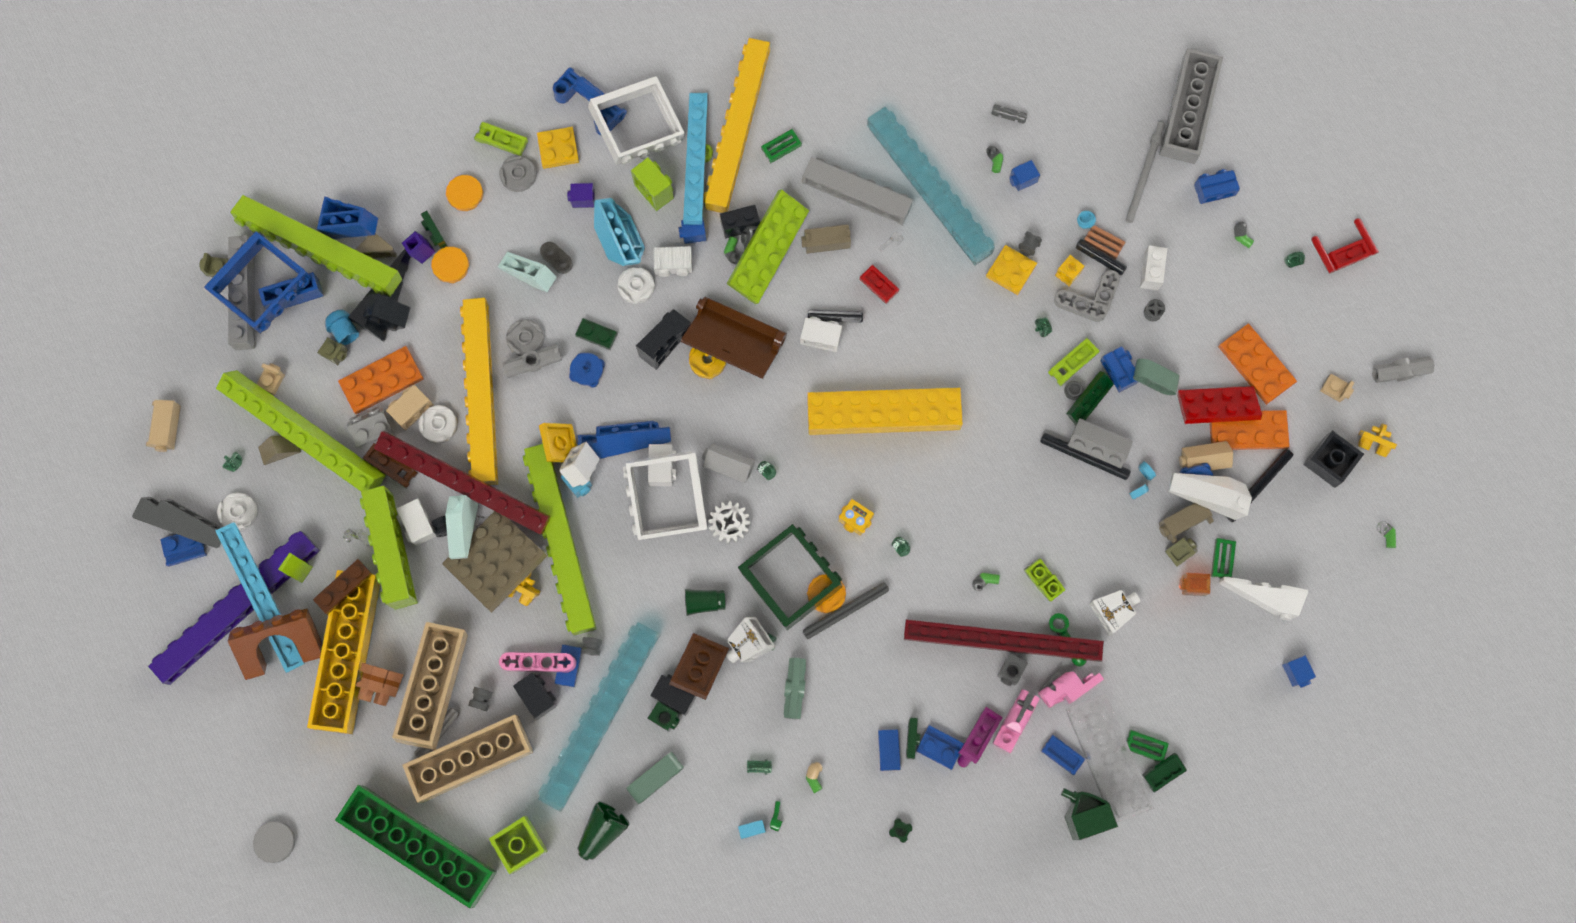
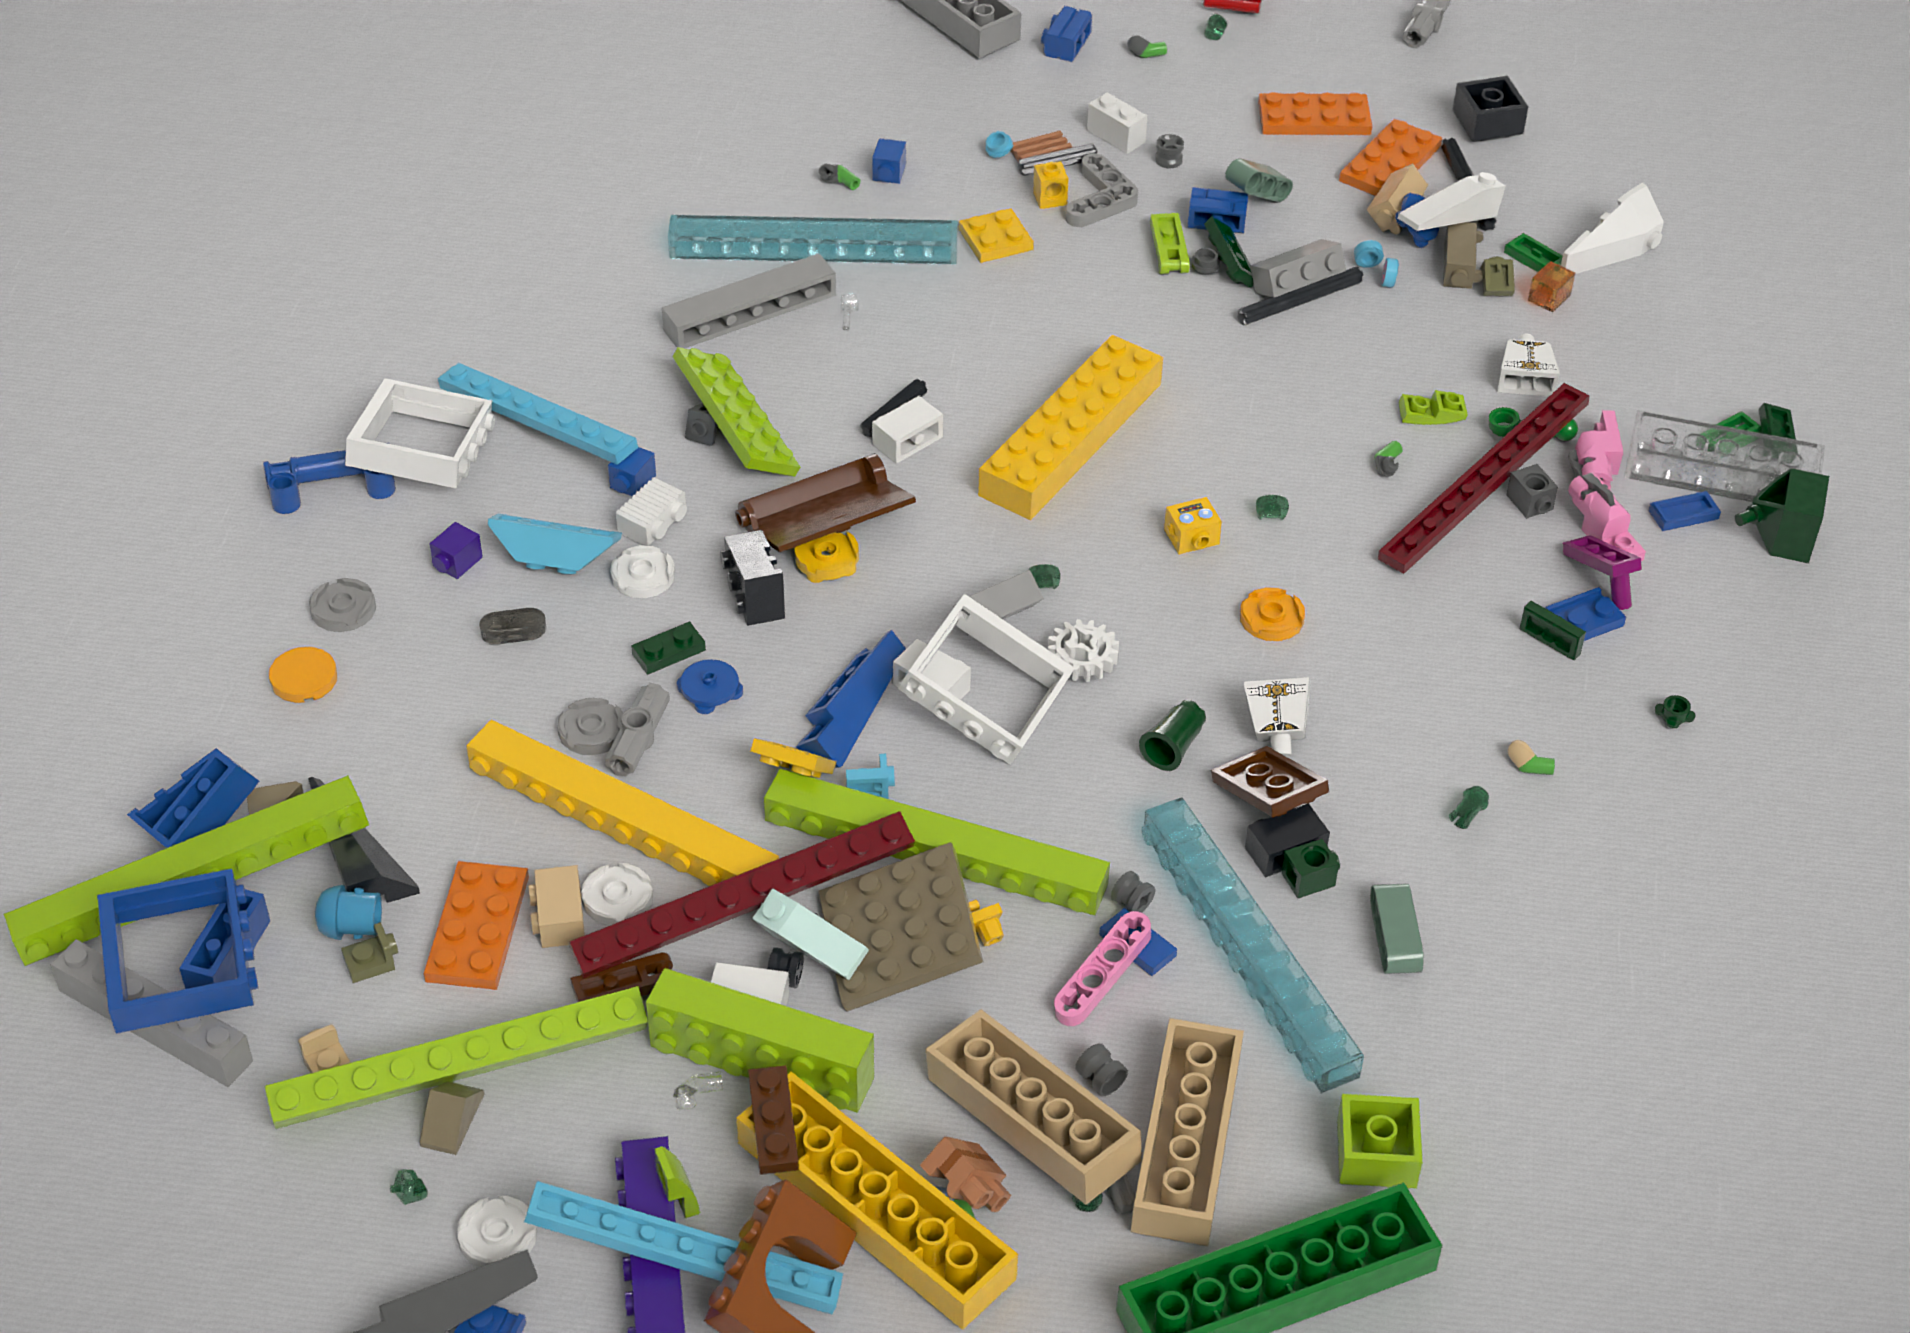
camera: 55 degrees left, 30 degrees down
(164, 425) = (249, 1245): tan brick -> none
(211, 265) = (68, 1030): olive bracket -> none
(368, 427) = (537, 973): light grey bracket -> none
(386, 312) = (388, 840): black brick -> none
(418, 247) = (329, 755): dark purple brick -> none
(436, 237) = (321, 731): dark green plate -> none
(450, 264) = (391, 747): light orange tile -> none
(501, 139) = (272, 591): lime plate -> none
(527, 271) = (502, 661): light aqua slope -> none
(535, 696) = (1152, 998): black brick -> none
(557, 147) = (355, 544): yellow plate -> none
(579, 465) = (852, 744): white brick -> none
(601, 830) = (1432, 1026): dark green cone -> none
(652, 183) = (526, 465): lime brick -> none
(730, 252) = (699, 457): arm -> none
(737, 126) = (532, 351): yellow brick -> none
(737, 220) = (667, 420): black brick -> none
(751, 829) = (1557, 864): medium azure piece -> none
(765, 147) = (607, 354): green tile -> none
(775, 824) = (1565, 836): green hand -> none
(794, 688) = (1384, 709): sand green piece -> none
(821, 562) = (1228, 663): dark green window -> none
(826, 239) = (784, 357): dark tan brick -> none
(845, 610) = (1313, 607): dark grey axle -> none
(879, 284) = (894, 347): red plate -> none
(889, 750) = (1549, 666): blue tile -> none
(1009, 114) = (795, 137): dark grey axle -> none
(1029, 244) = (980, 199): dark grey brick -> none
(1043, 326) = (1098, 245): clear green piece -> none
(1155, 141) = (962, 52): light grey bar -> none
(1219, 405) = (1340, 158): red plate -> none
(1299, 672) = (1733, 262): blue brick -> none
(1337, 388) = (1404, 73): tan bracket -> none
(1384, 445) = (1493, 66): yellow hips -> none
(1388, 532) = (1614, 121): arm -> none

